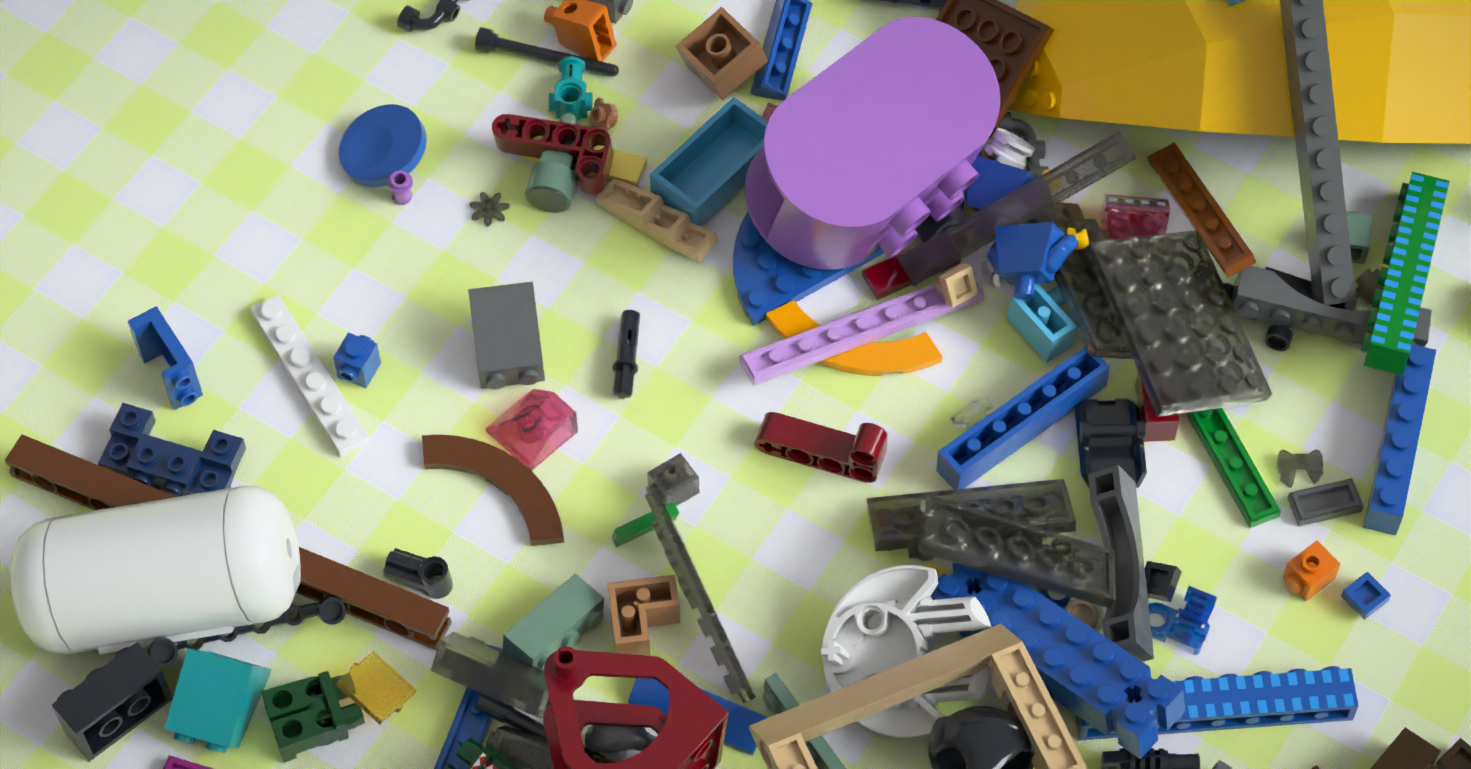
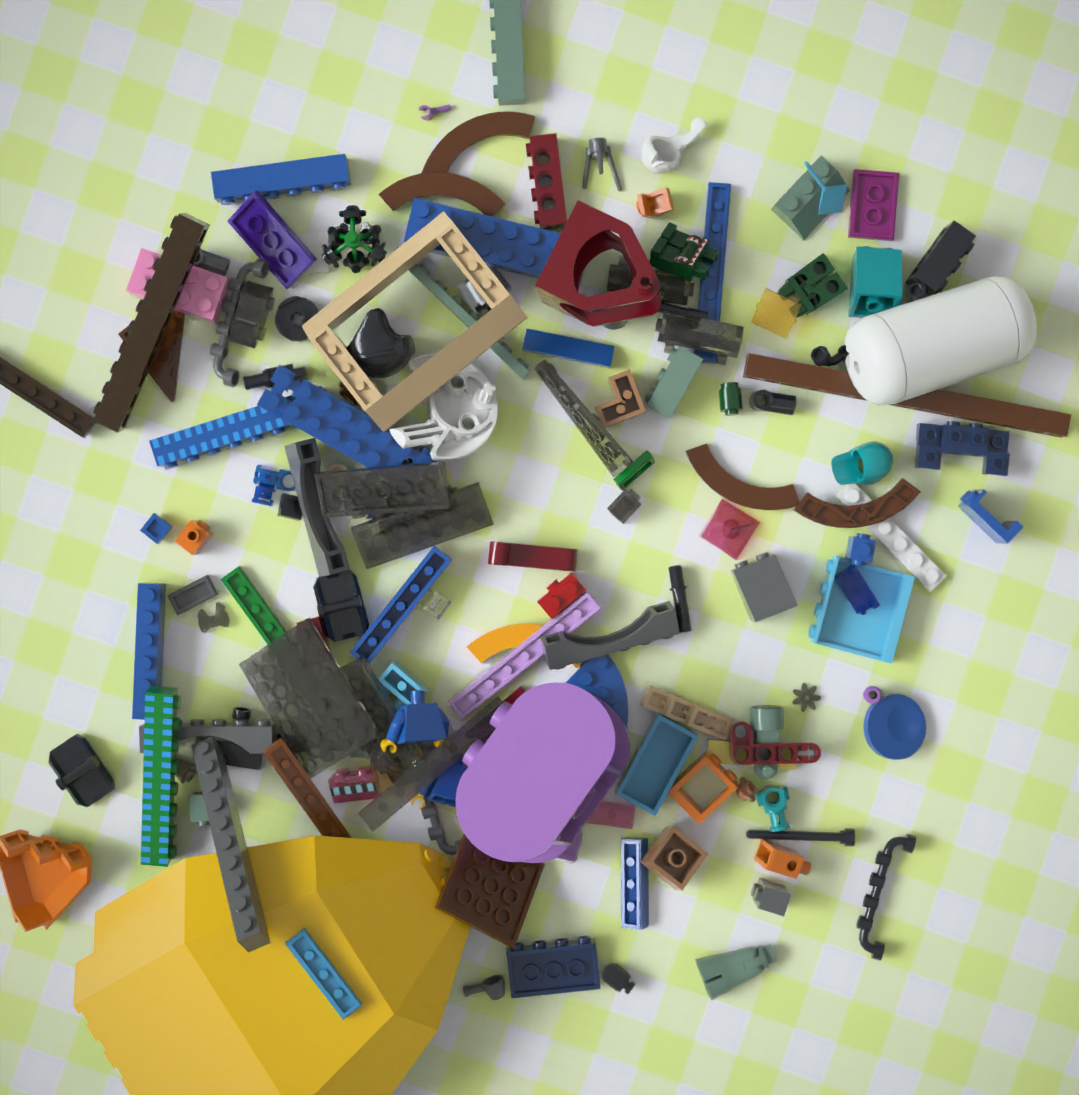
camera: 170 degrees right, 30 degrees up
(300, 467) = (876, 462): none -> teal piece
(343, 400) = (858, 515): none -> reddish brown tile
(379, 291) = (866, 635): none -> medium azure panel
(379, 311) = (856, 590): none -> clear blue hinge
(478, 590) = (730, 398): none -> dark green brick
(655, 152) = (687, 802): none -> orange window
(793, 387) = (560, 595): none -> red brick
(798, 313) = (653, 624): none -> dark grey arch
(957, 285) = (466, 698): tan tile -> none
(1009, 148) = (448, 821): white wheel -> none

